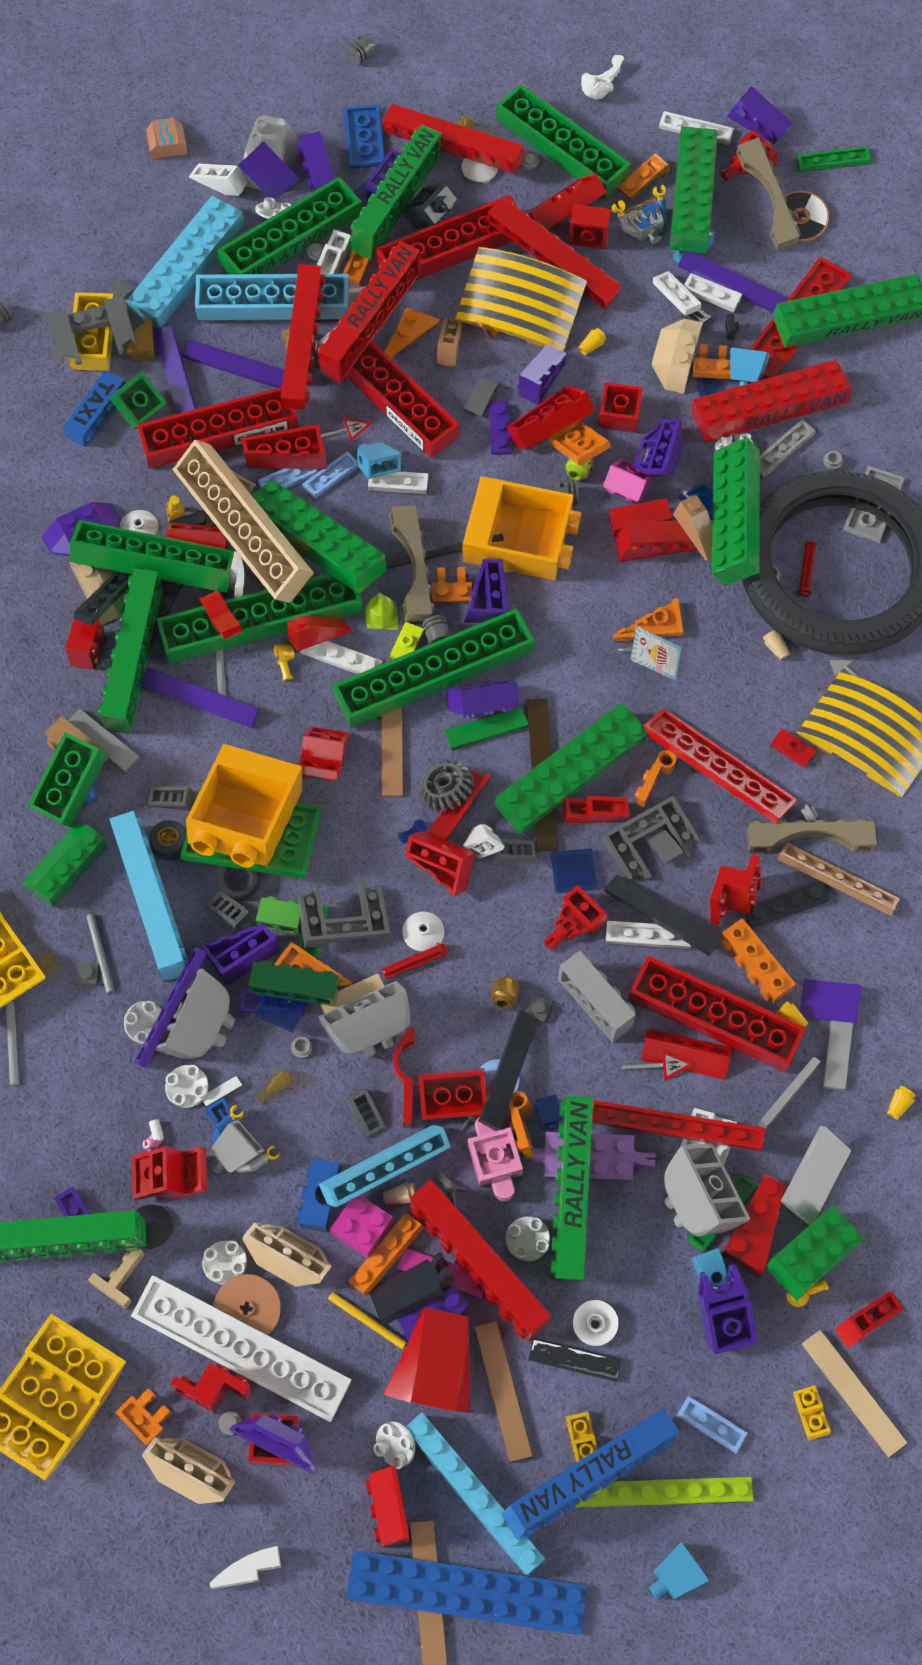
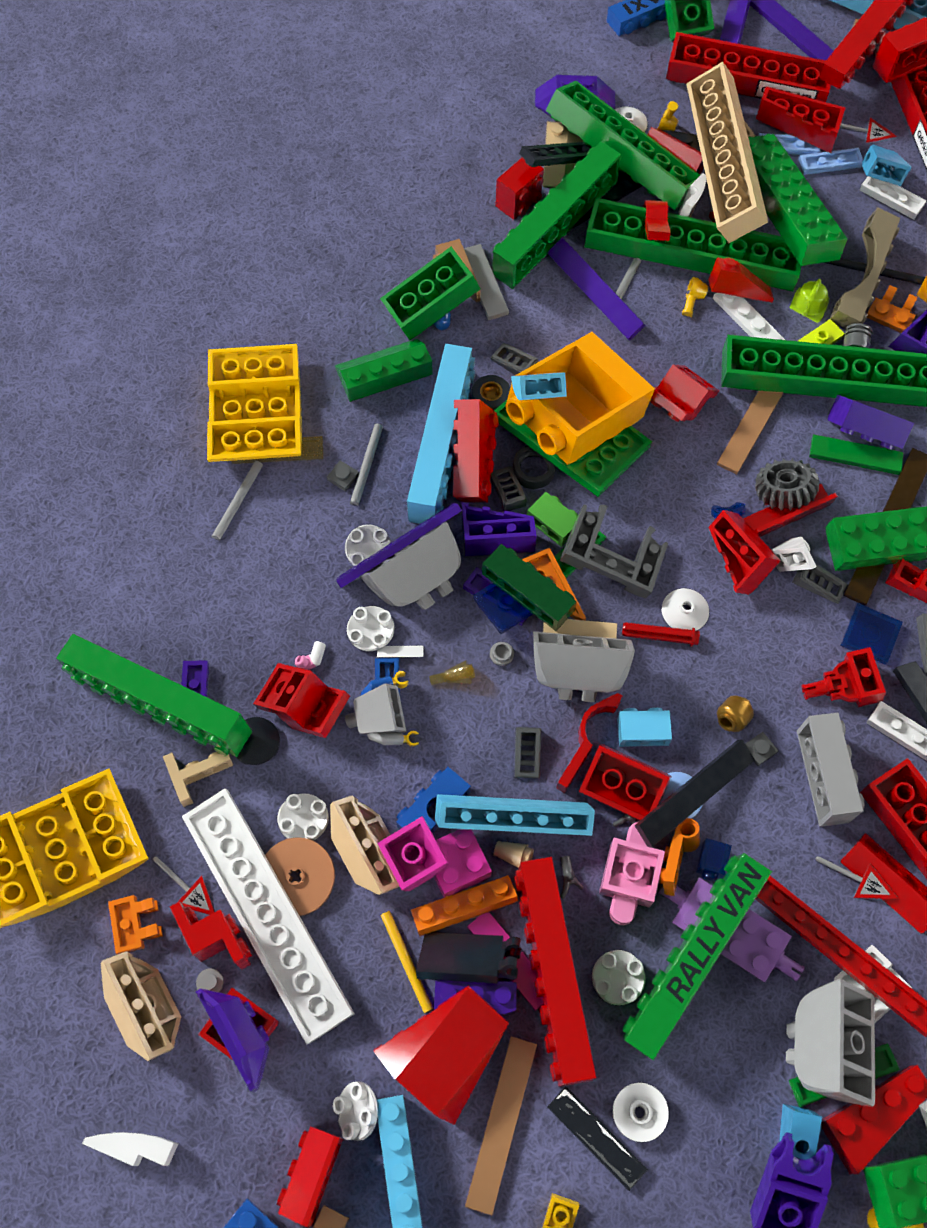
camera: 30 degrees right, 0 degrees up
(179, 1367) = (195, 897): none -> piece
(185, 896) = (474, 450): none -> wedge
(212, 818) = (539, 386): none -> medium azure brick
(328, 1238) = (413, 854): none -> dark pink slope
(443, 1042) = (644, 727): none -> medium azure brick

